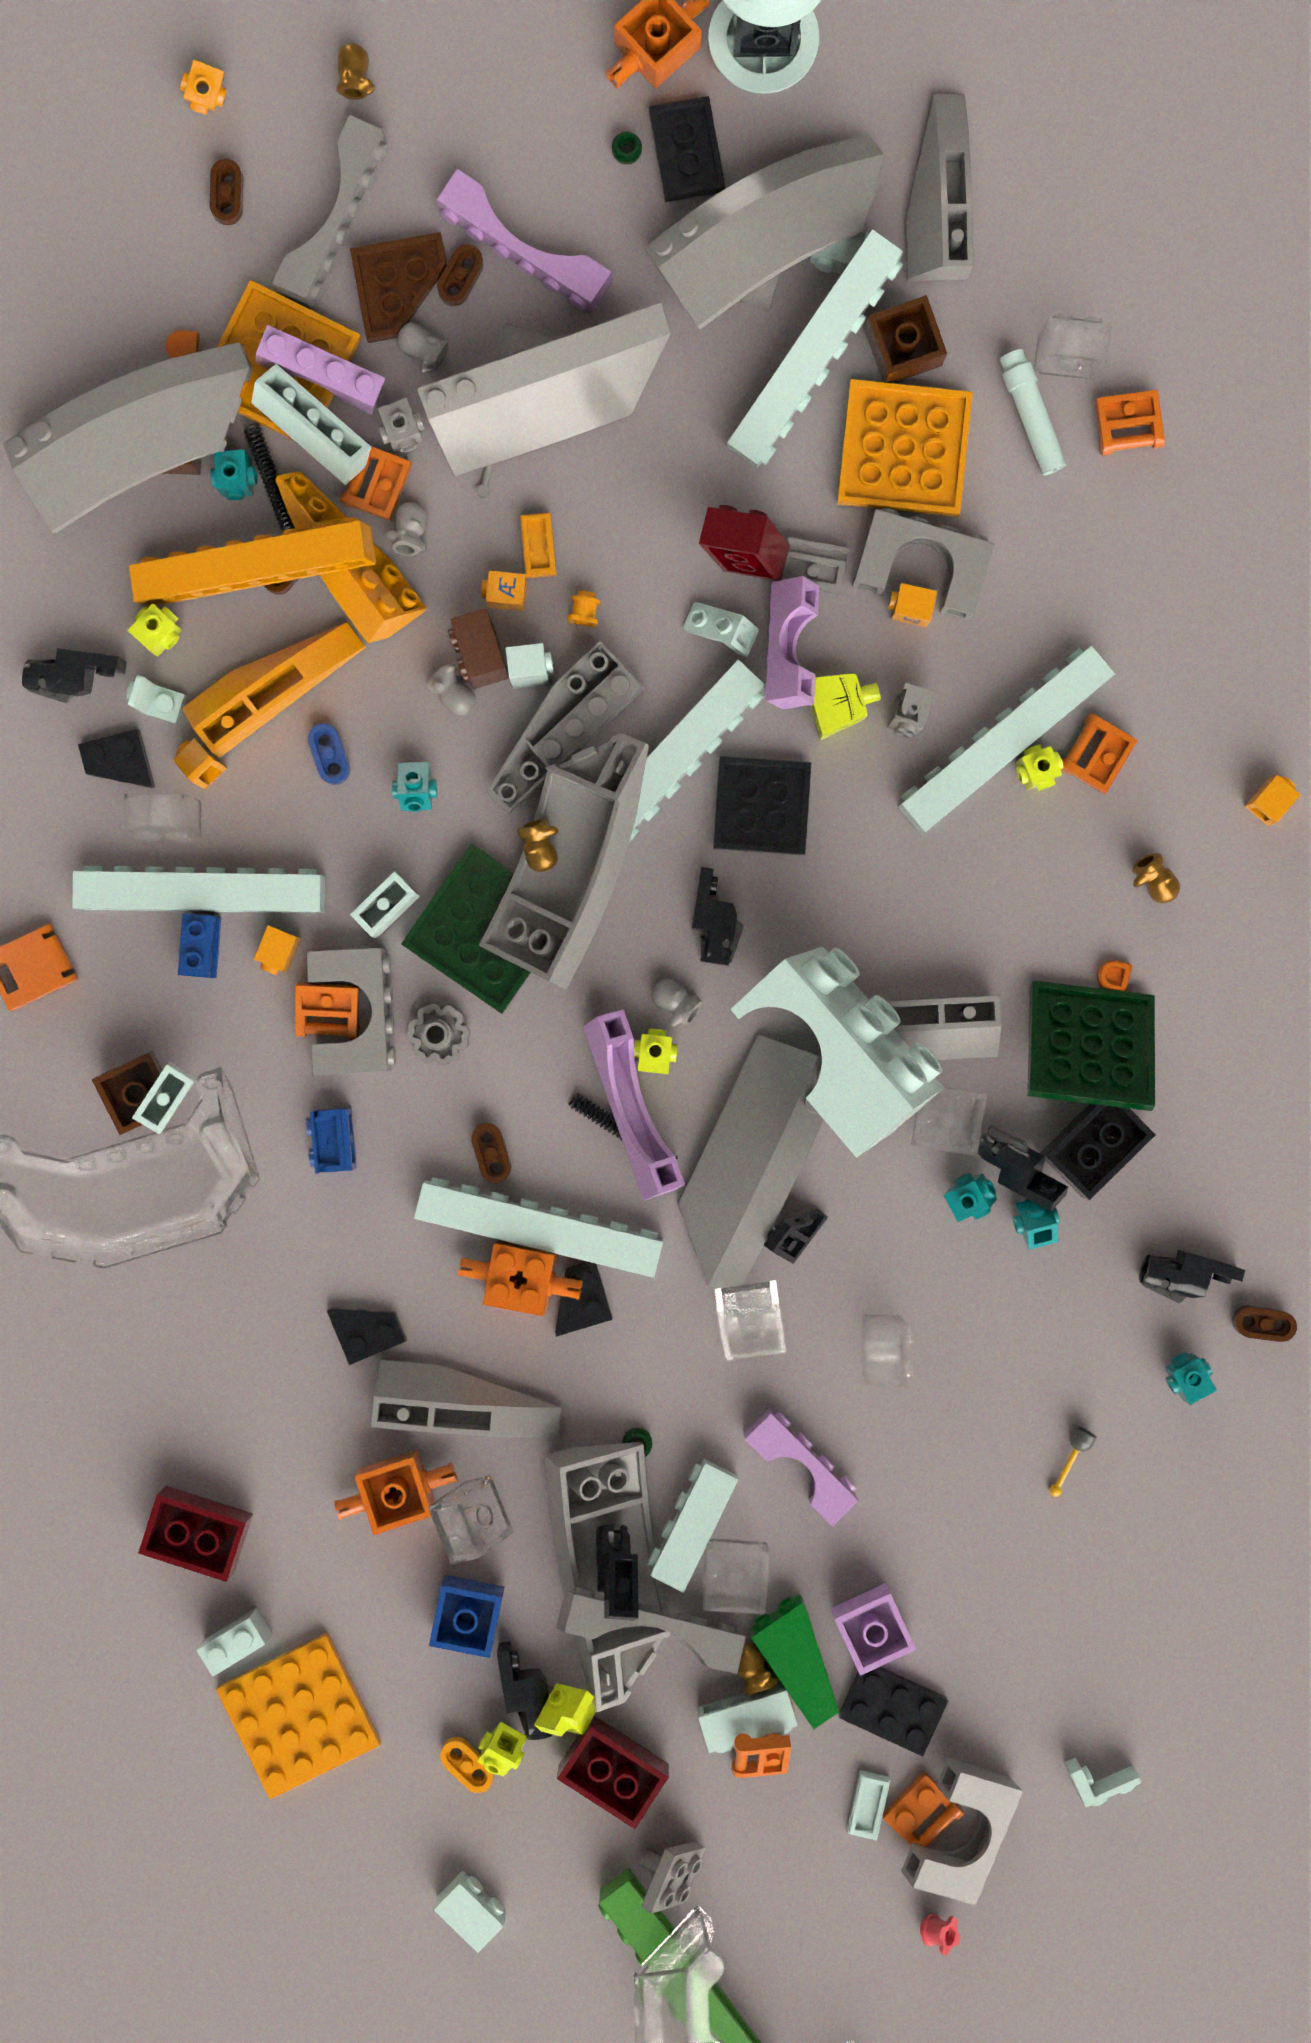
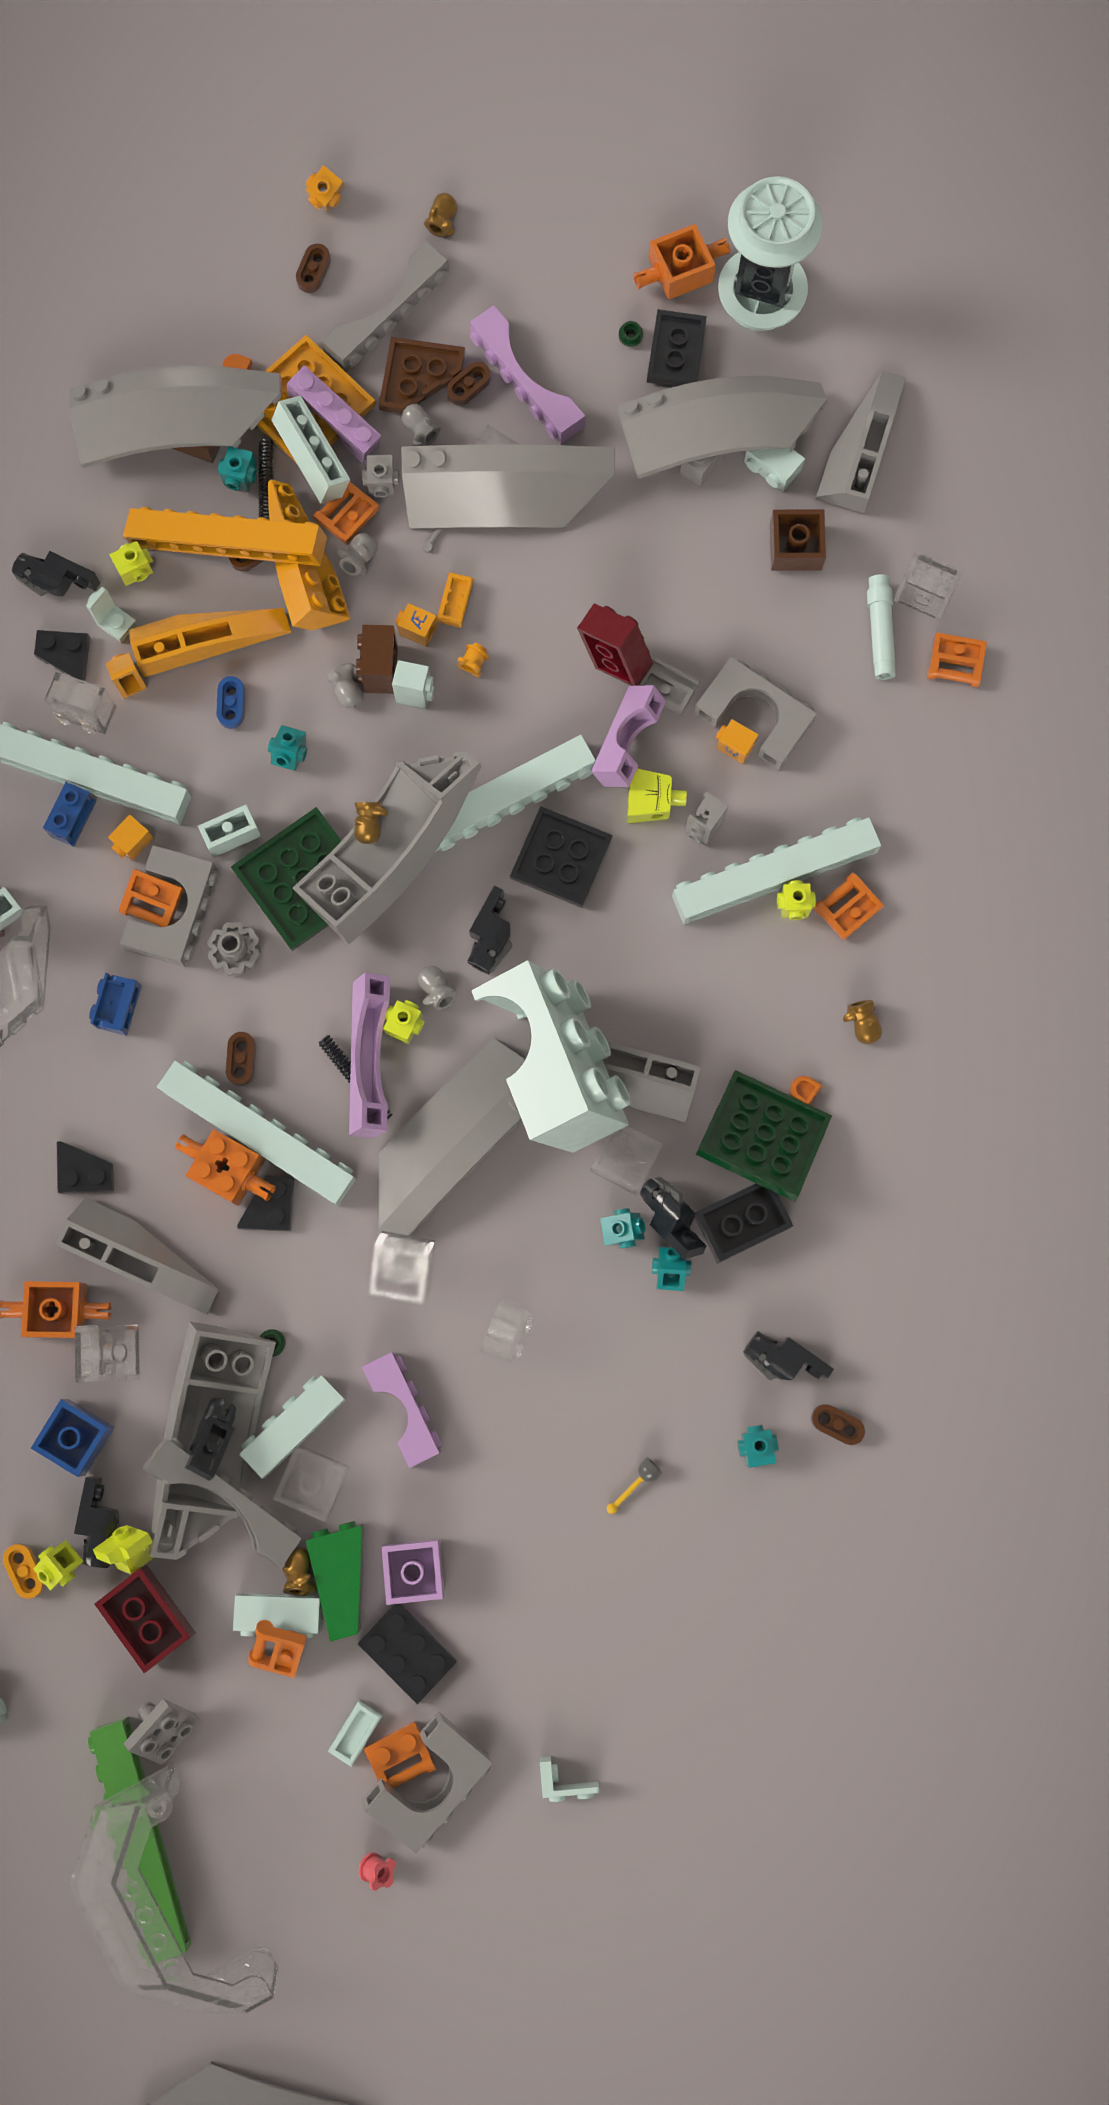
camera: 20 degrees right, 10 degrees down
(567, 720) = (440, 728): light grey wedge -> none
(722, 626) = (579, 707): light aqua bracket -> none
(794, 1234) = (464, 1209): black wing -> none
(815, 348) = (723, 522): light aqua brick -> none
(904, 448) = (770, 621): light orange plate -> none
(1273, 799) = (980, 990): light orange brick -> none

